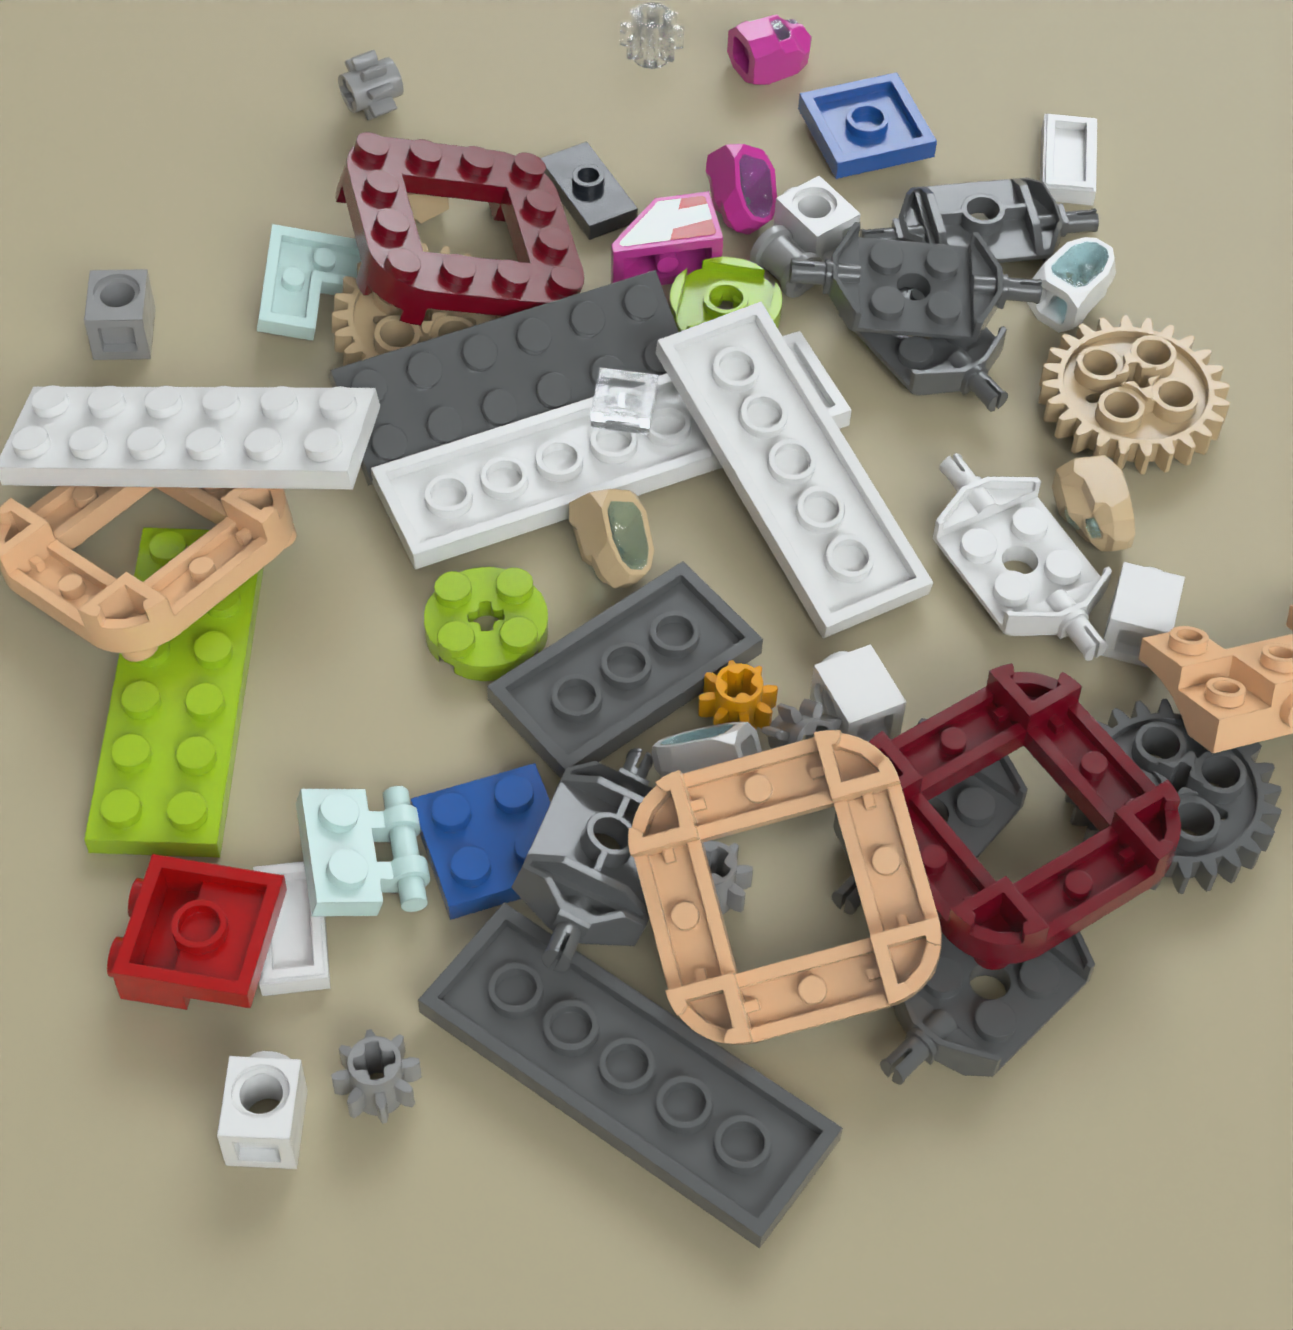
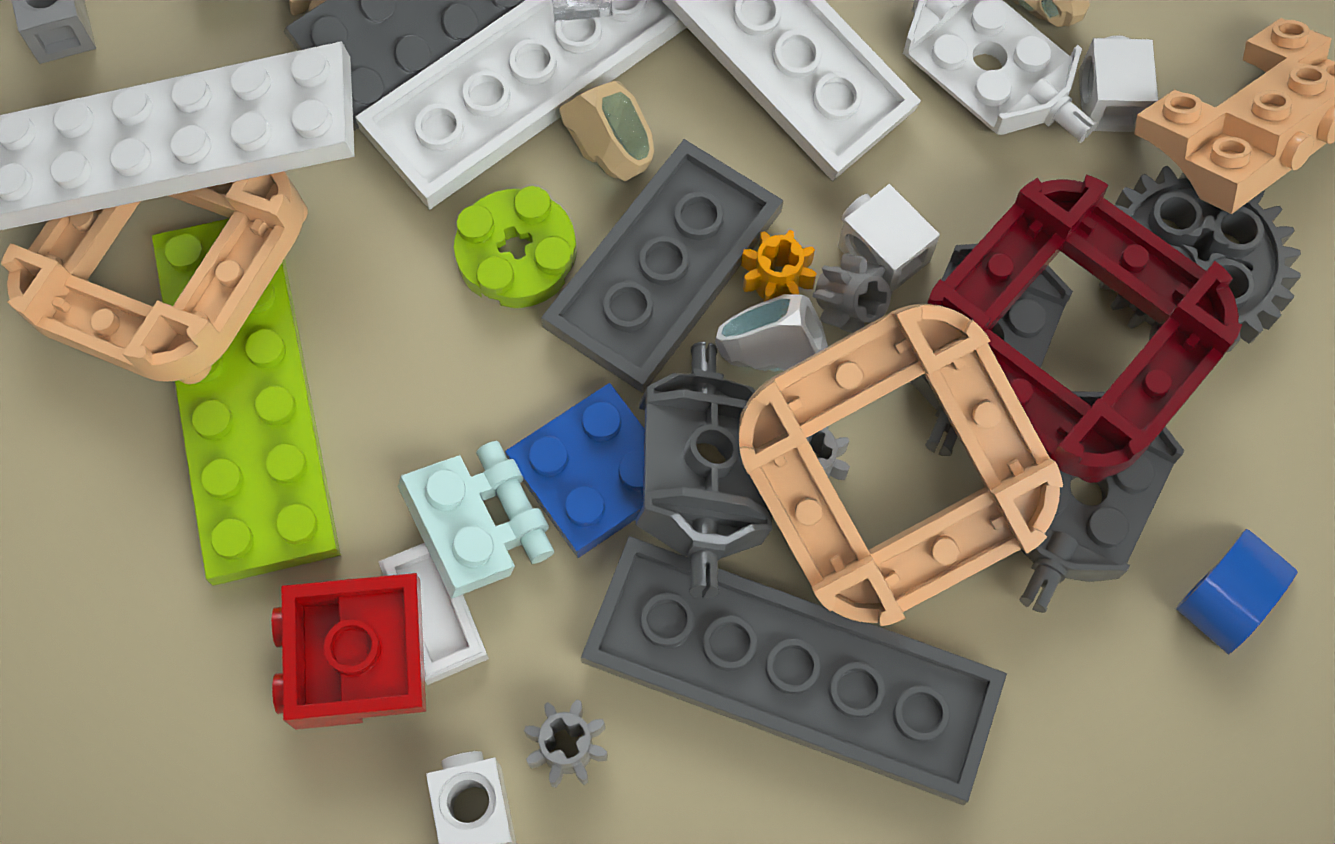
camera: 15 degrees left, 15 degrees up
(1110, 1117) = (1238, 592): none -> blue panel

